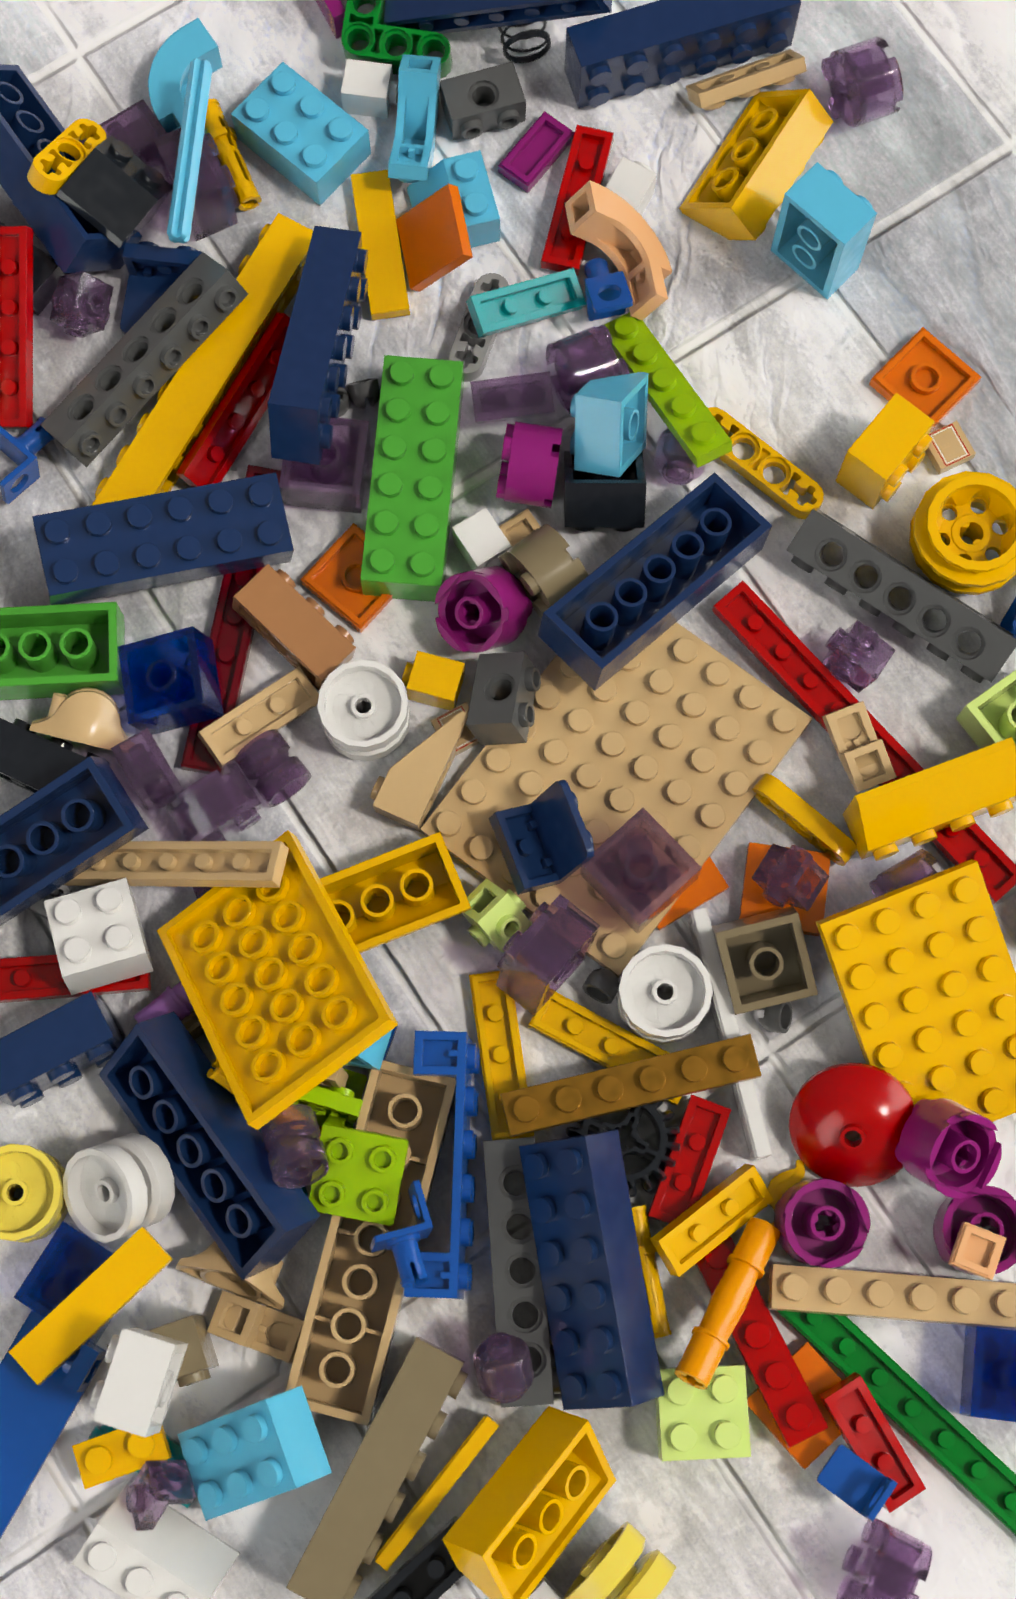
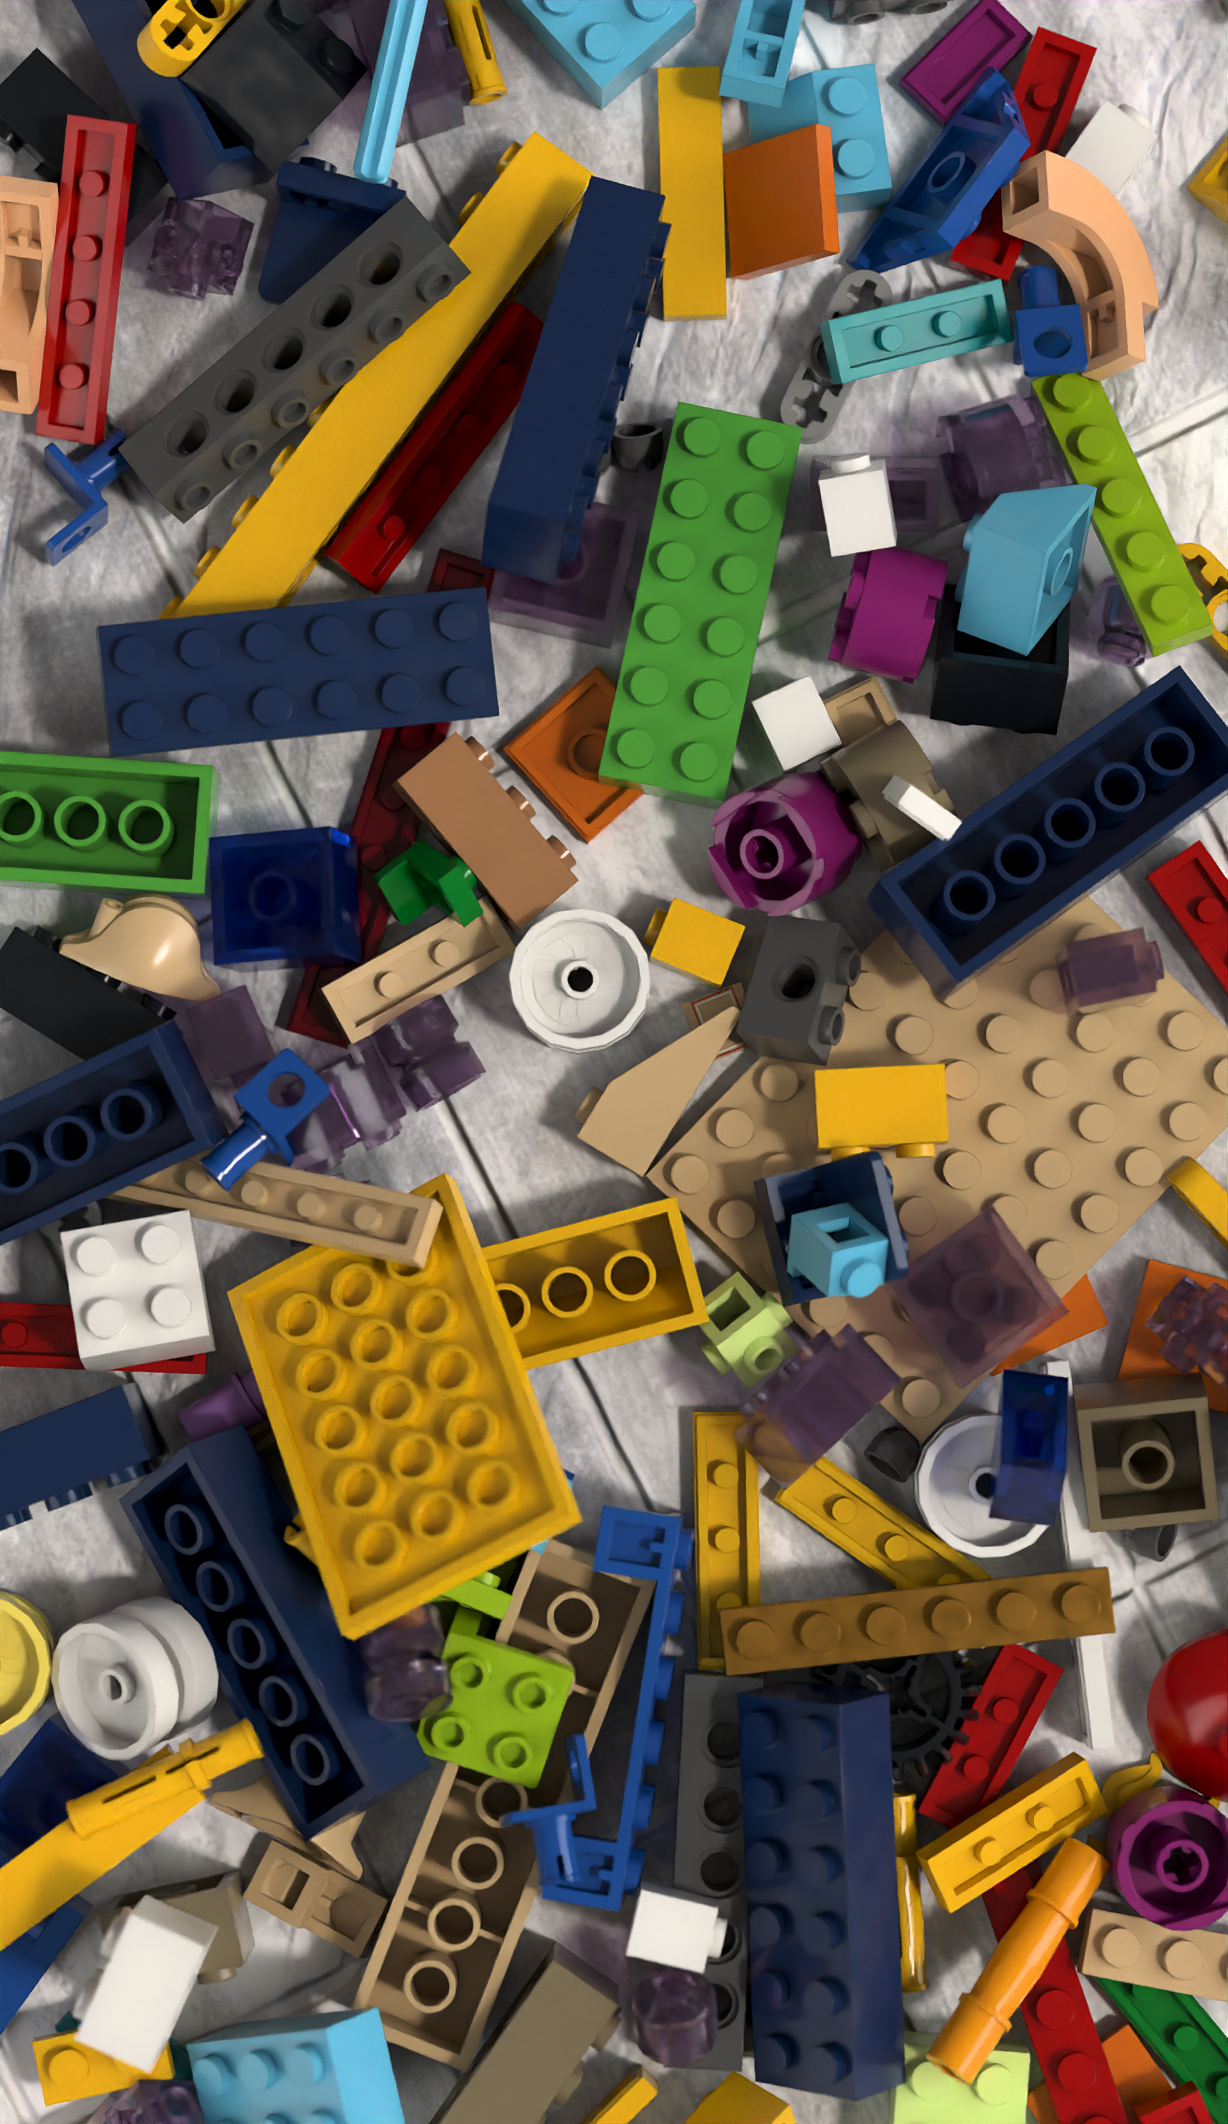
camera: 10 degrees right, 10 degrees up
(148, 1243) = (164, 1779): none -> yellow pin
(168, 813) = (262, 1122): none -> blue bracket
(261, 660) = (426, 879): none -> green bracket
(496, 1307) = (675, 1928): none -> white brick
(501, 396) = (857, 505): none -> white brick
(535, 215) = (951, 181): none -> blue wing
(549, 854) = (838, 1266): none -> medium azure brick
(564, 566) = (921, 808): none -> white tile
(566, 756) = (881, 1110): none -> yellow brick
(688, 959) = (1029, 1448): none -> clear blue slope
(696, 657) = (1108, 972): none -> brick

